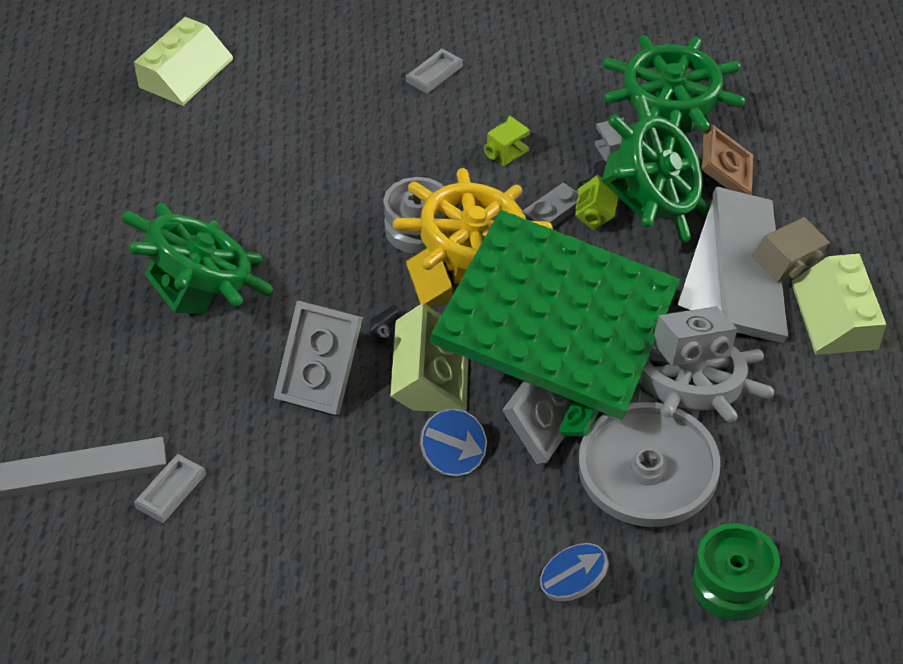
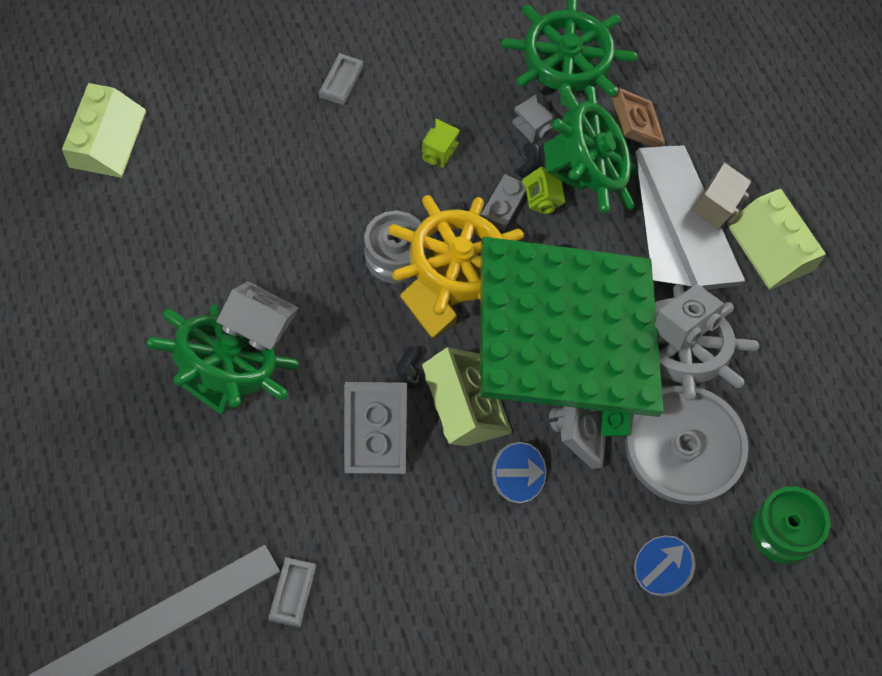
camera: 25 degrees left, 15 degrees up
(244, 230) = (256, 315): none -> light grey slope

